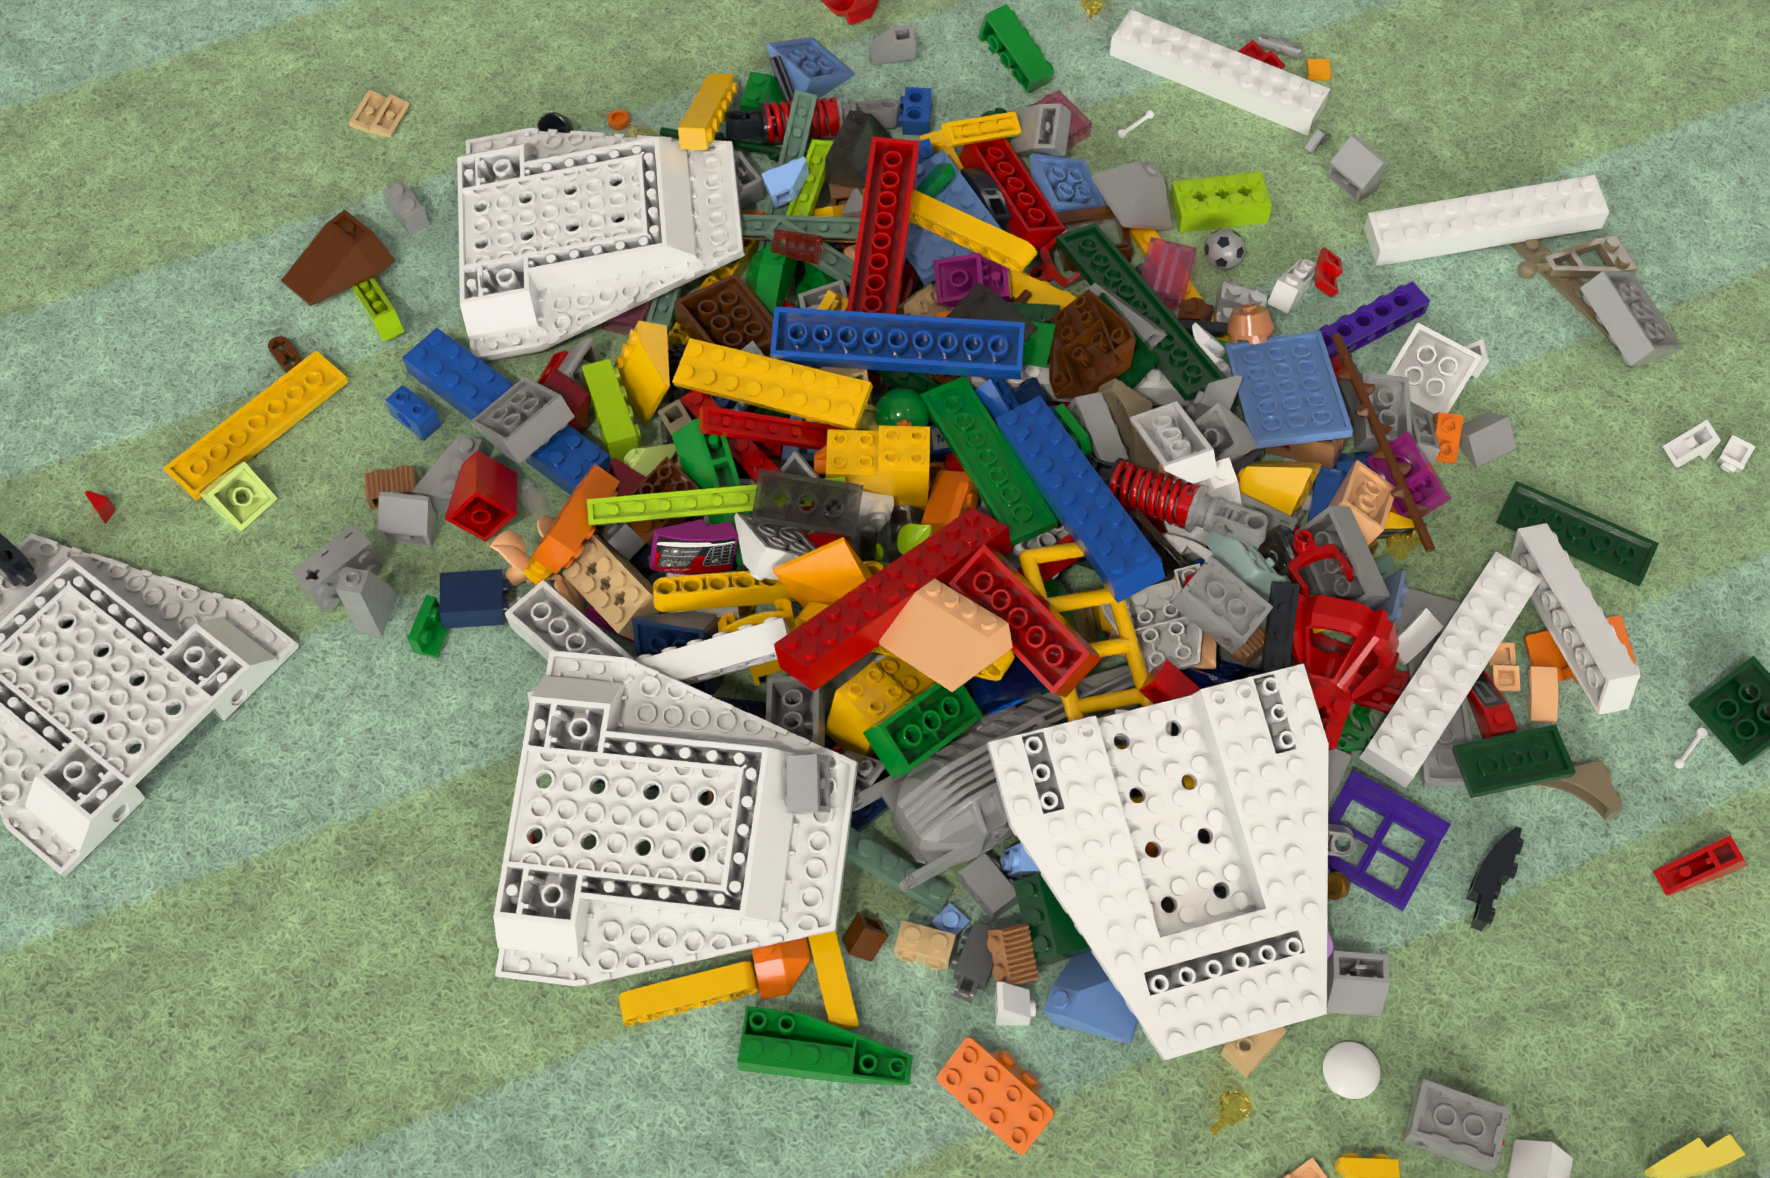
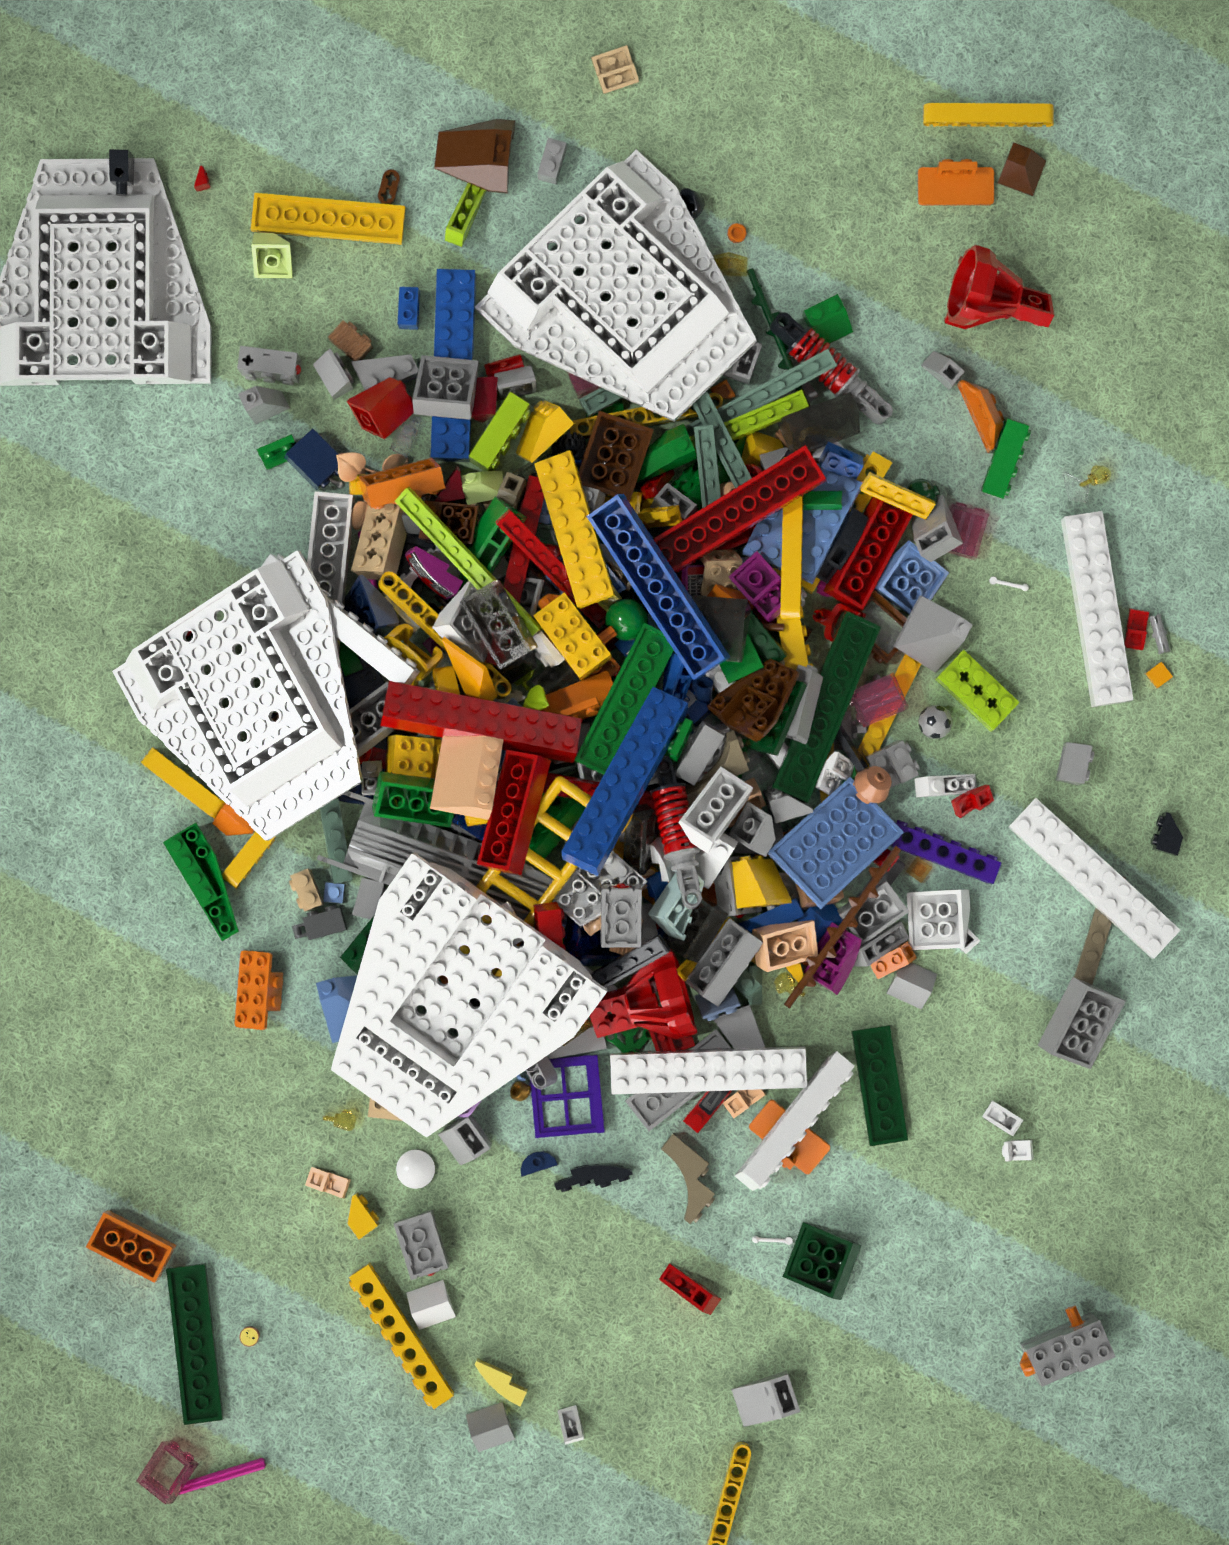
camera: 55 degrees right, 25 degrees up
(707, 111) = (774, 298): yellow brick -> none
(782, 78) = (846, 325): black axle -> none
(785, 181) = (750, 403): light blue slope -> none
(807, 240) = (706, 470): clear red slope -> none
(807, 784) = (322, 766): light grey brick -> none
(810, 65) = (880, 324): medium blue slope -> none
(864, 937) = (288, 852): reddish brown panel -> none
(916, 111) = (901, 433): blue brick -> none
(959, 42) = (983, 412): none -> orange wedge
(1012, 954) = (333, 943): medium nougat brick -> none
(1013, 1005) = (308, 964): white slope -> none
(1195, 309) = (863, 741): reddish brown brick -> none
(1311, 553) = (706, 940): red piece -> none
(1318, 137) = (1088, 718): light grey tile -> none
(1365, 359) = (918, 869): none -> clear orange tile
(1417, 635) = (716, 1035): white slope -> none
(1435, 927) = (536, 1162): none -> dark blue plate
(1483, 147) = (1168, 836): none -> black slope
(1513, 761) = (670, 1144): dark green plate -> none
(1543, 694) = (740, 1133): light nougat slope -> none
(1608, 247) = (1136, 979): dark tan plate -> none

